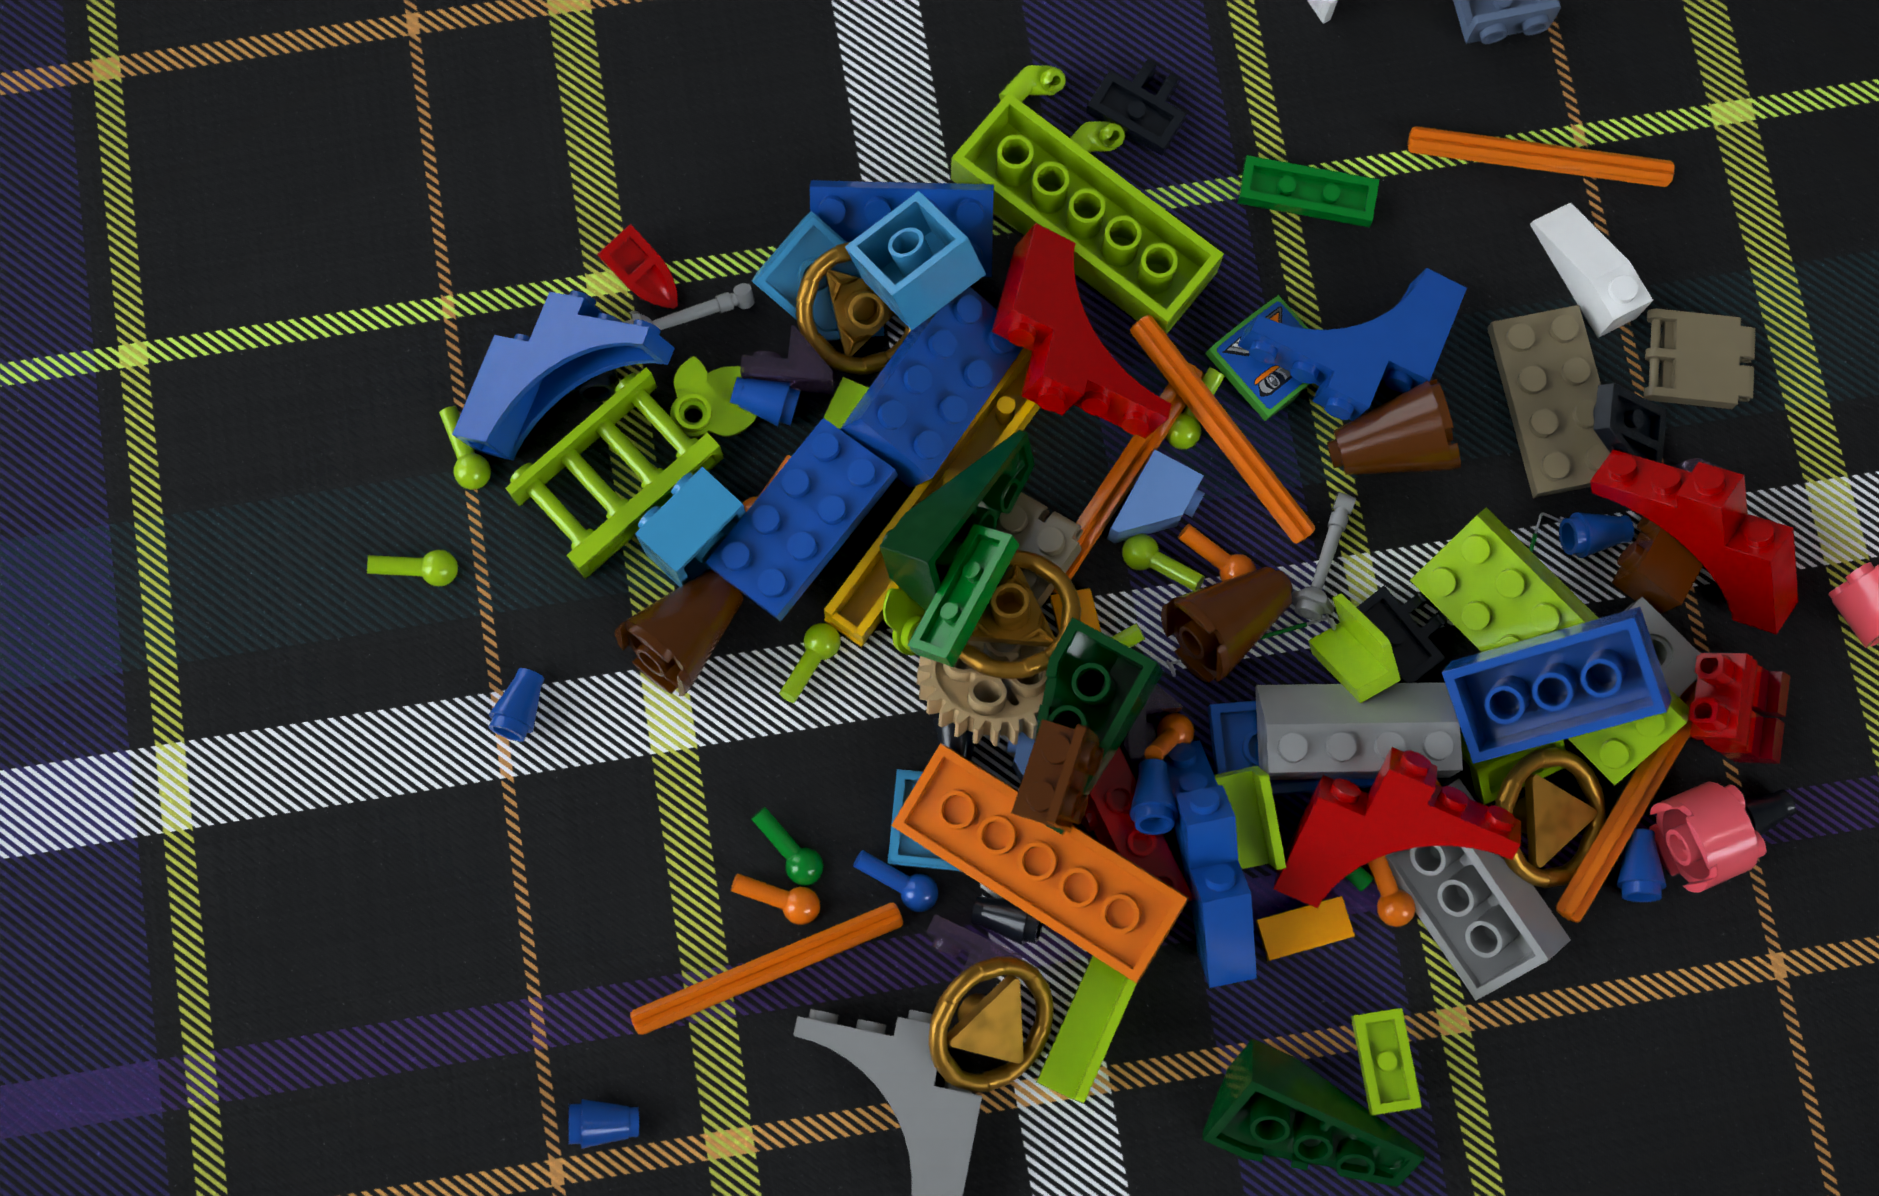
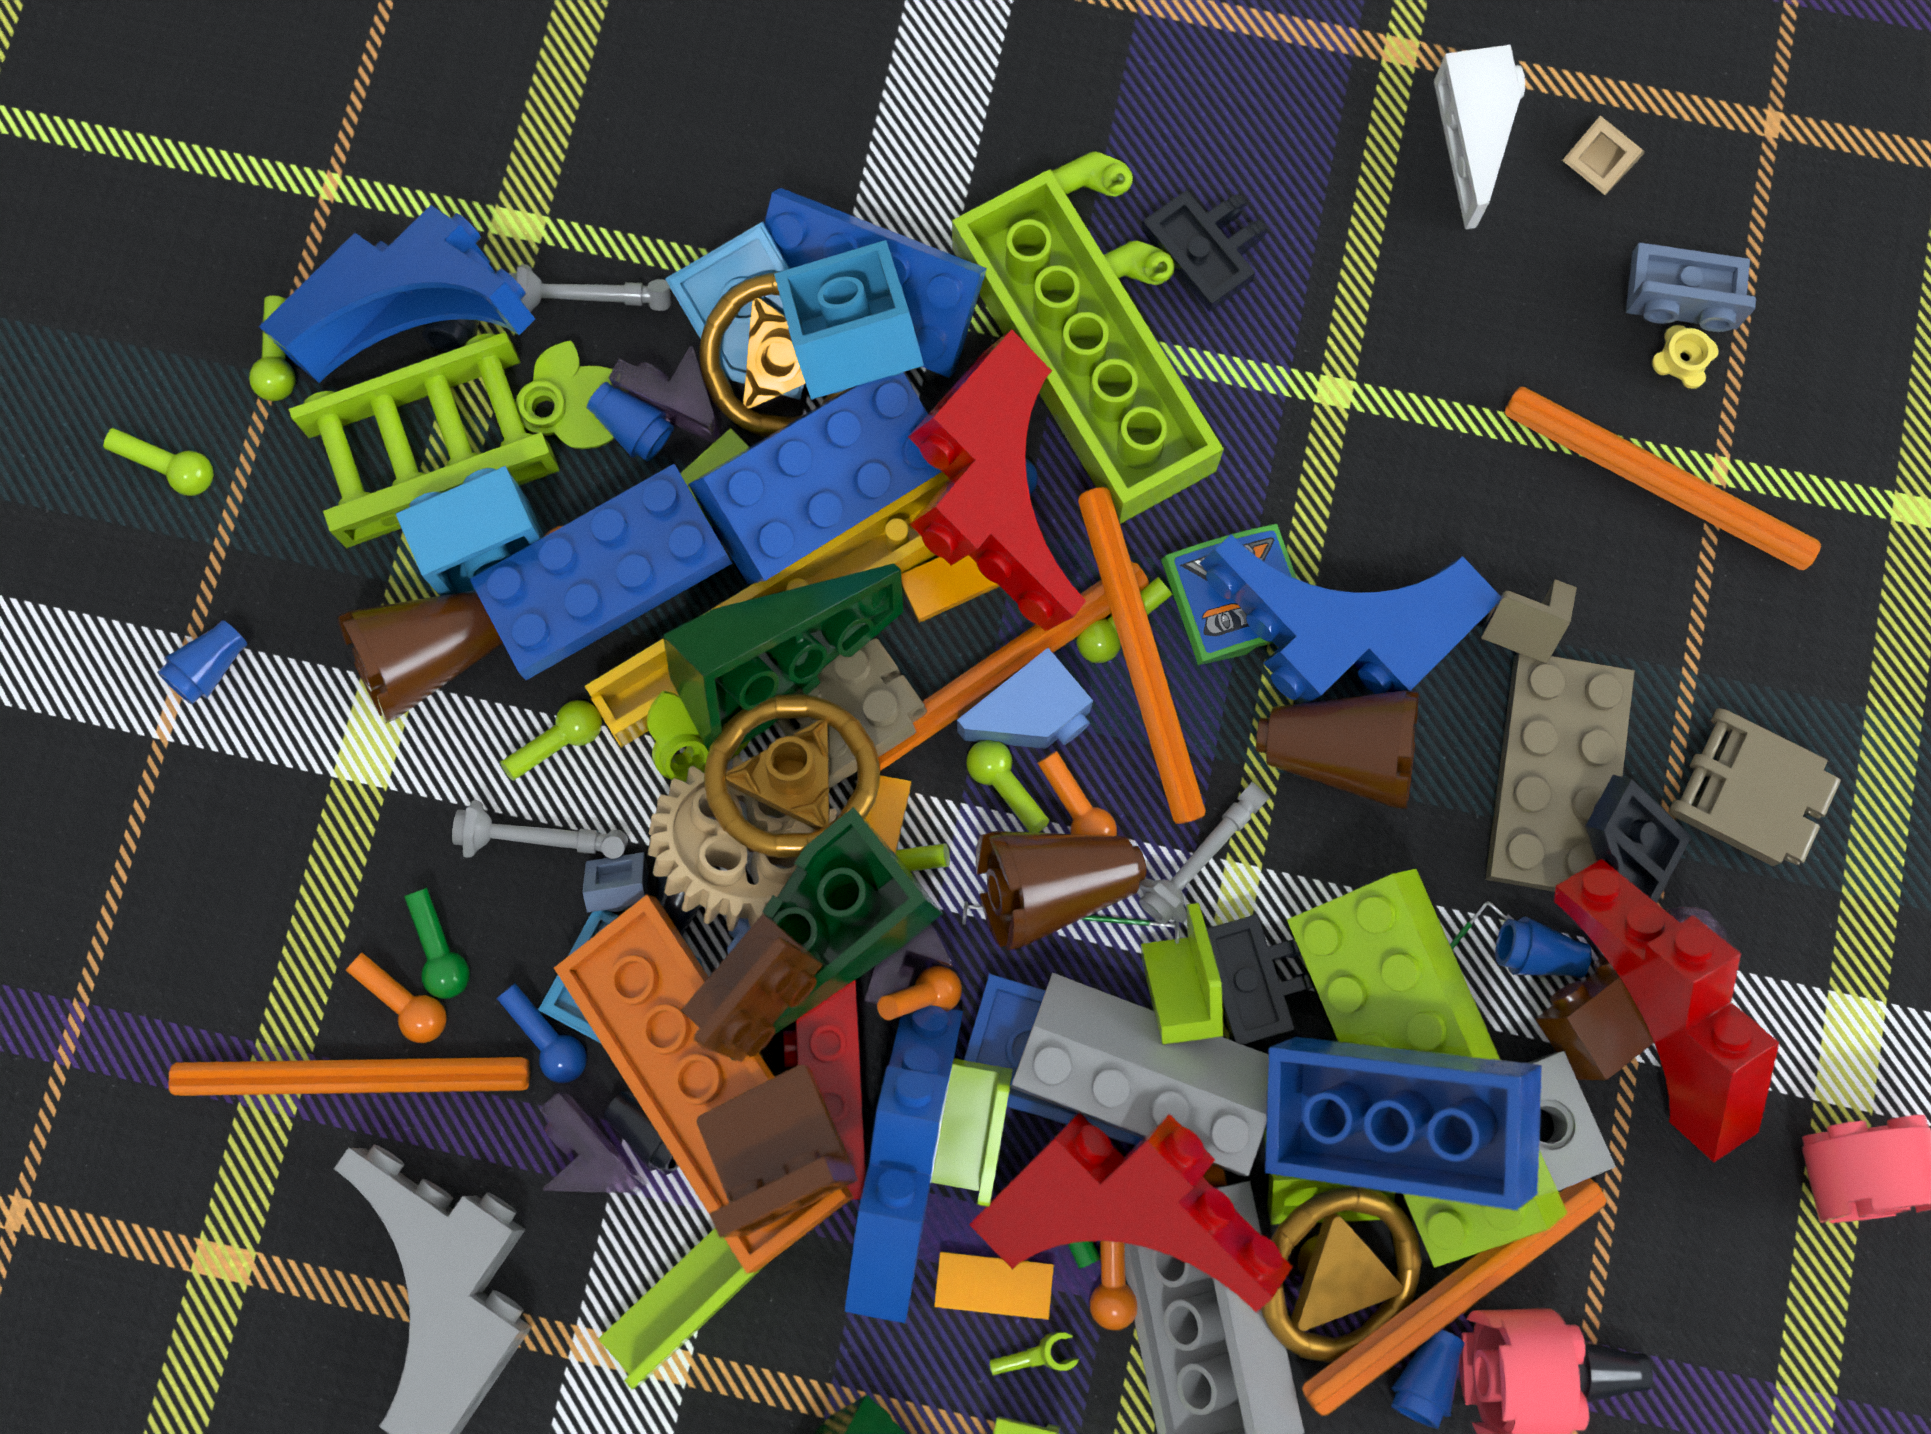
camera: 25 degrees right, 0 degrees up
(601, 1123) = (82, 1178): blue cone -> none
(640, 268) = (554, 219): red plate -> none
(782, 748) = (475, 828): none -> light grey piece
(906, 746) = (615, 882): none -> sand blue plate
(963, 595) = (738, 731): green plate -> none
(990, 1023) = (566, 1249): pearl gold piece -> none
(1053, 432) = (942, 586): none -> light orange piece
(1122, 885) = (774, 1152): none -> reddish brown bracket
(1153, 799) = (861, 1062): blue cone -> none
(1308, 191) = (1363, 415): green plate -> none
(1360, 963) = (1034, 1357): none -> lime hand
(1494, 300) = (1530, 625): none -> dark tan panel
(1526, 49) = (1689, 341): none -> light yellow plate
(1592, 269) = (1668, 634): white slope -> none
(1730, 707) = (1615, 1223): red hips -> none

